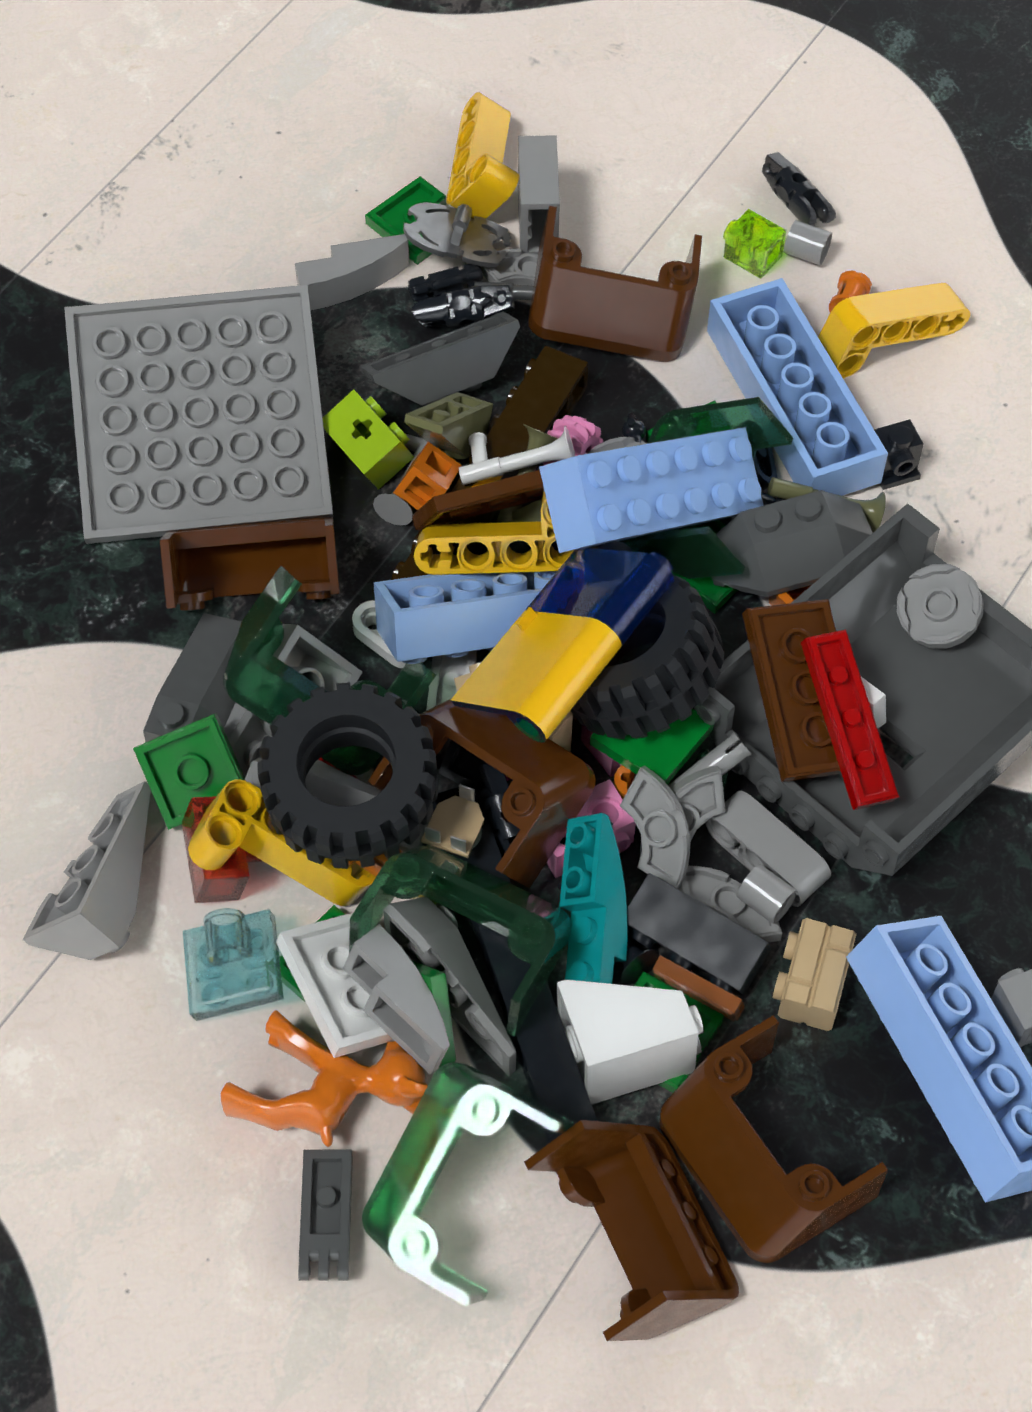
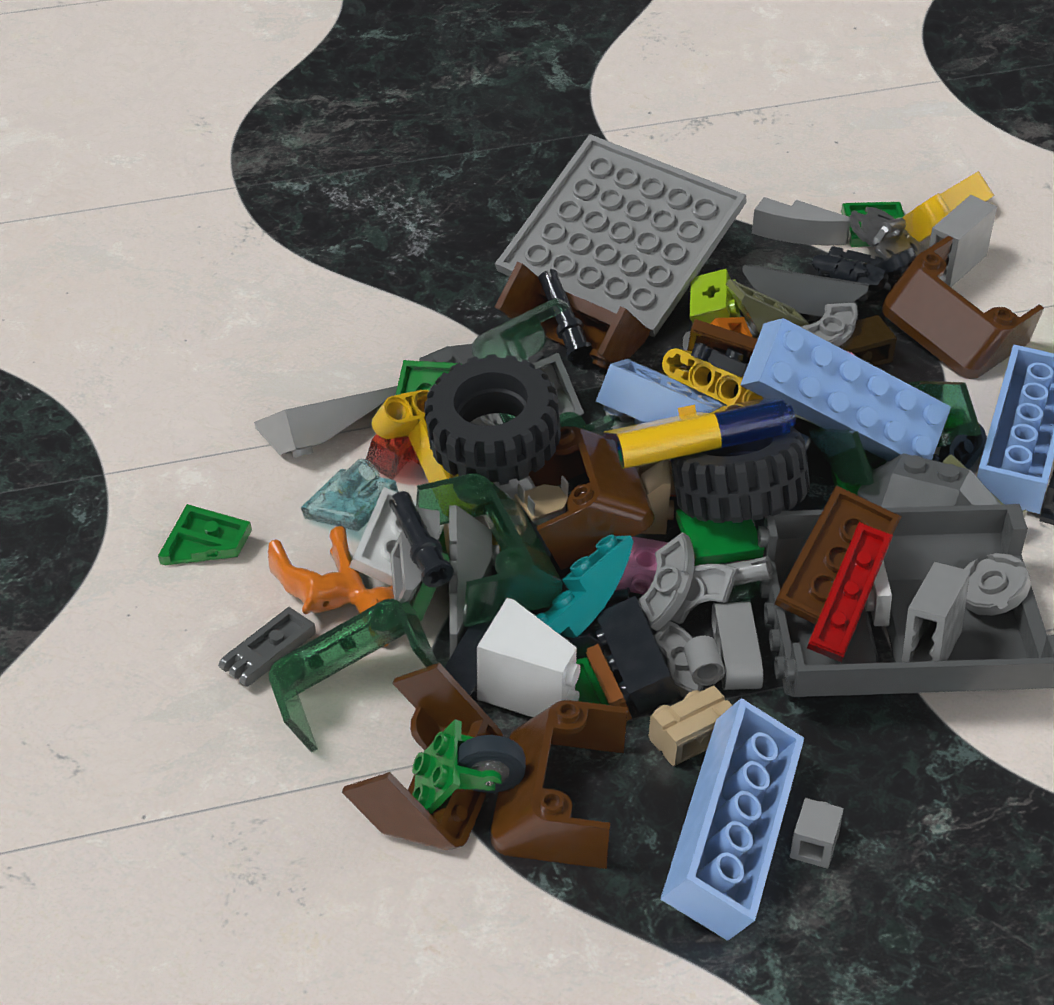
camera: 40 degrees right, 15 degrees down
(119, 1131) = (204, 537): none -> green wing
(252, 573) = (569, 327): none -> black pin
(425, 989) = (424, 549): none -> black pin
(494, 520) = (730, 361): none -> black plate
(510, 265) = (898, 263): none -> black plate
(523, 395) = (836, 324): none -> light grey tile
(672, 1233) = (466, 762): none -> plate
(953, 696) = (936, 614): none -> light grey brick

